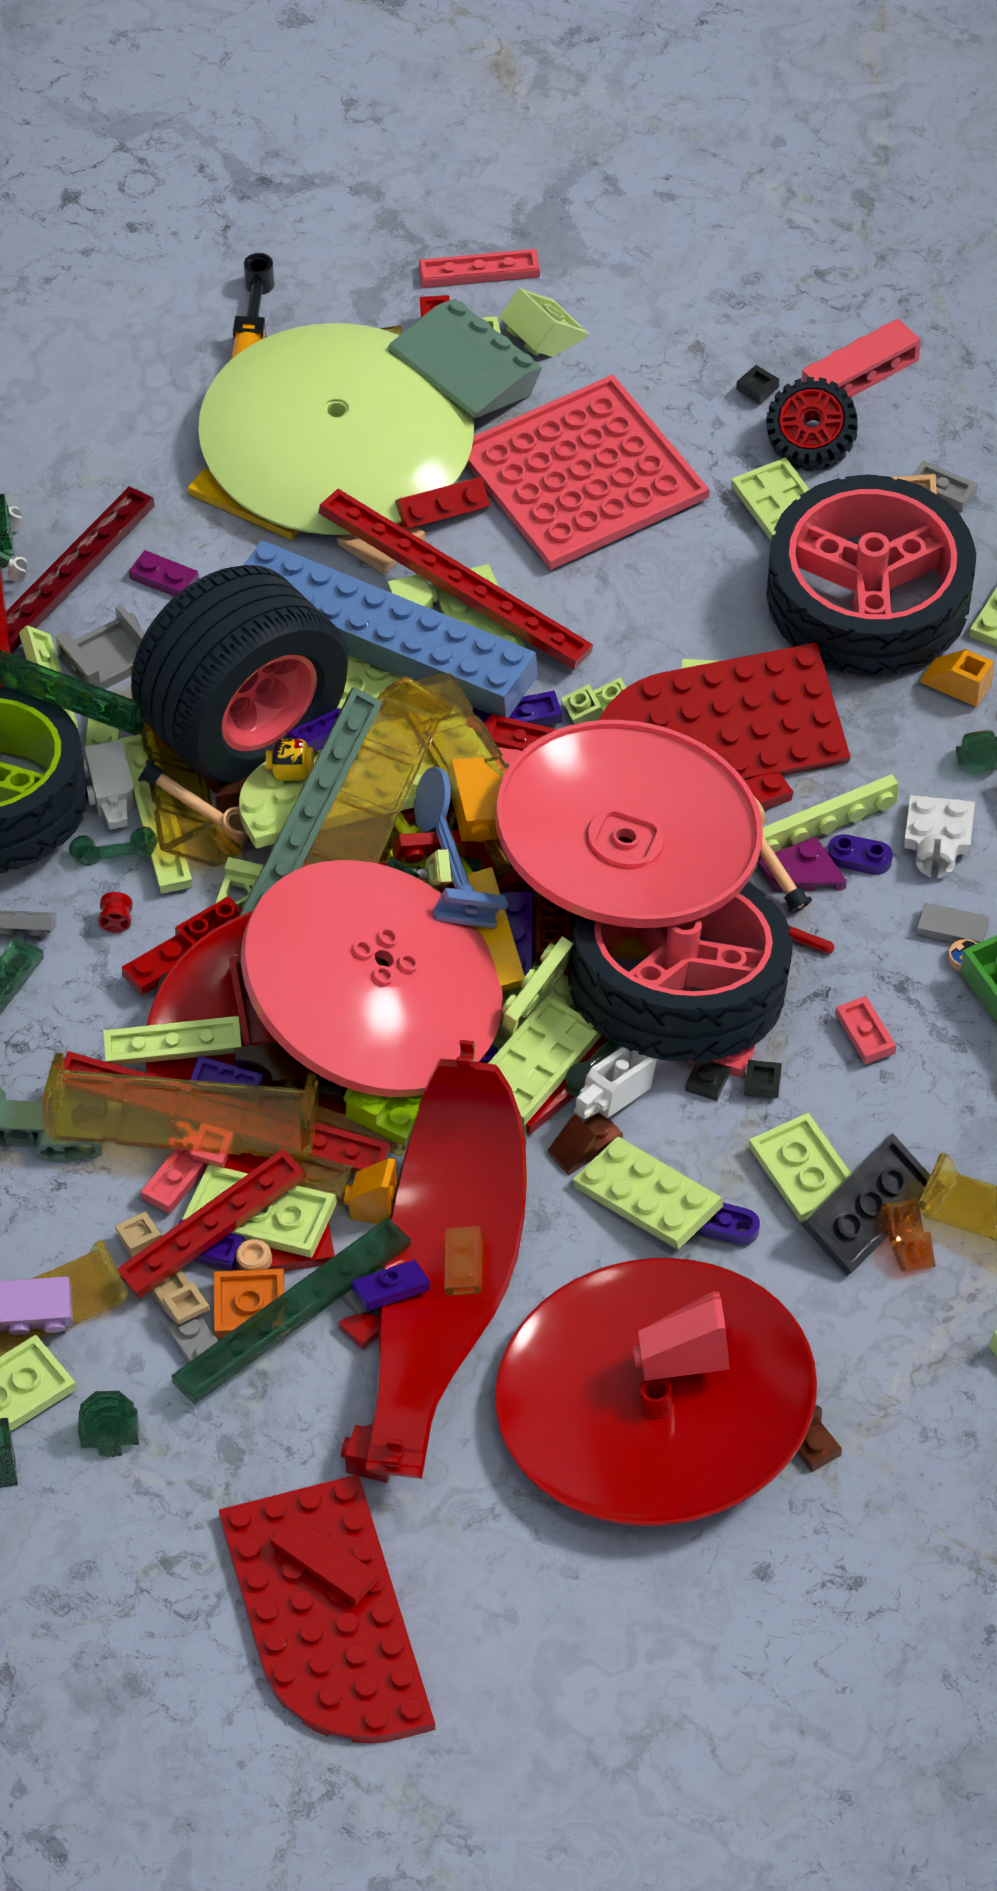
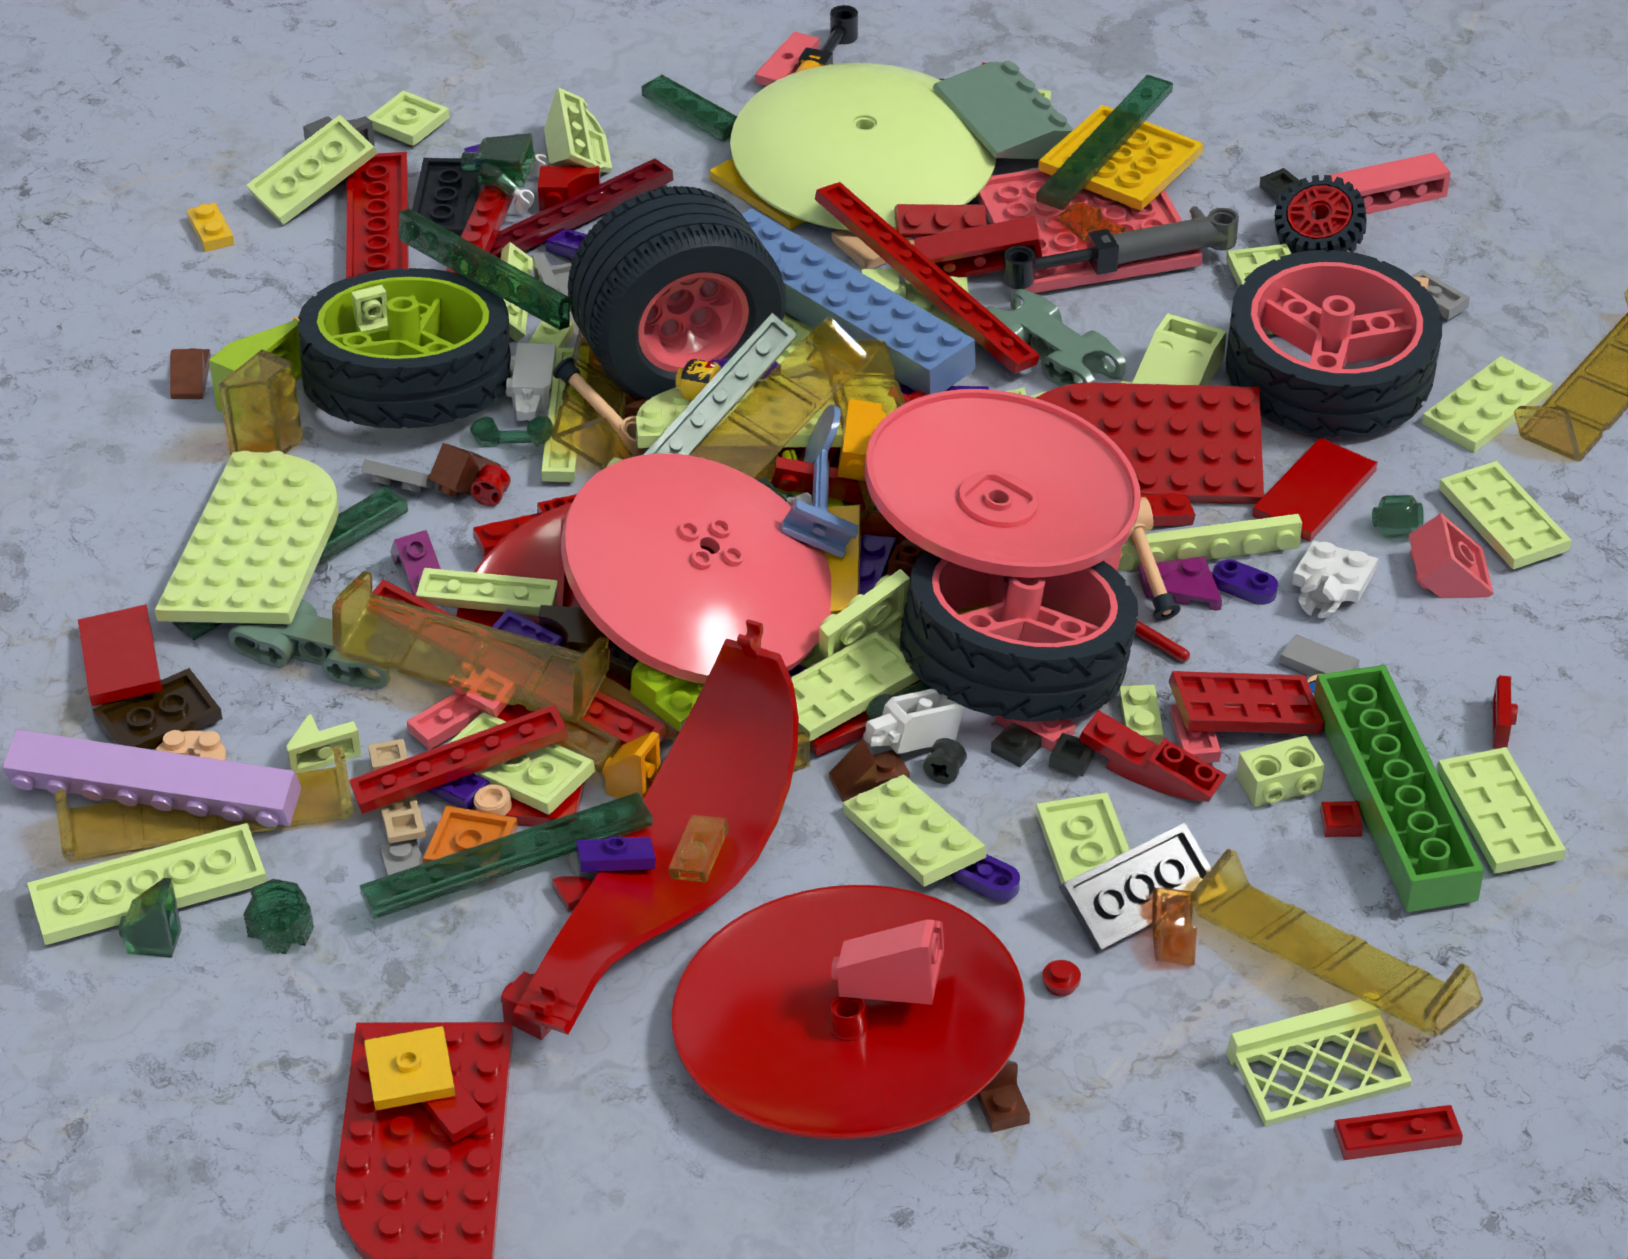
camera: 15 degrees right, 10 degrees down
(38, 477) = (574, 134): none -> yellowish green wedge
(50, 538) = (564, 182): none -> red arch
(66, 1240) = (314, 748): none -> yellowish green slope
(80, 902) = (457, 469): none -> copper slope
(83, 1017) = (415, 554): none -> magenta bracket
(88, 609) = (565, 243): none -> dark purple plate
(141, 412) = (690, 106): none -> clear green plate
(216, 331) = (785, 59): none -> coral tile
(293, 1546) = (409, 1068): none -> yellow plate
(439, 869) = (805, 488): yellowish green tile -> none
(479, 268) = (1051, 56): coral tile -> none
(497, 530) = (979, 248): none -> red brick
(541, 323) = (1082, 95): yellowish green slope -> none
(577, 377) = (1104, 142): none -> clear green tile
(588, 477) = (1084, 218): none -> clear orange slope
(596, 389) = (1138, 169): none -> yellow plate
(613, 632) = (1063, 352): none -> sand green piece
(620, 507) = (1108, 250): none -> piece
(651, 1114) = (945, 760): none -> pearl dark grey wheel
(727, 618) = (1182, 353): none -> yellowish green slope
(810, 1021) = (1141, 711): none -> yellowish green plate
(825, 1307) = (1061, 977): none -> red plate
(837, 1073) = (1154, 766): none -> red slope
(894, 734) = (1317, 486): none -> red tile
(903, 989) = (1246, 702): none -> red plate
(953, 1048) = (1280, 771): none -> yellowish green brick
(961, 676) = (1400, 449): light orange slope -> none

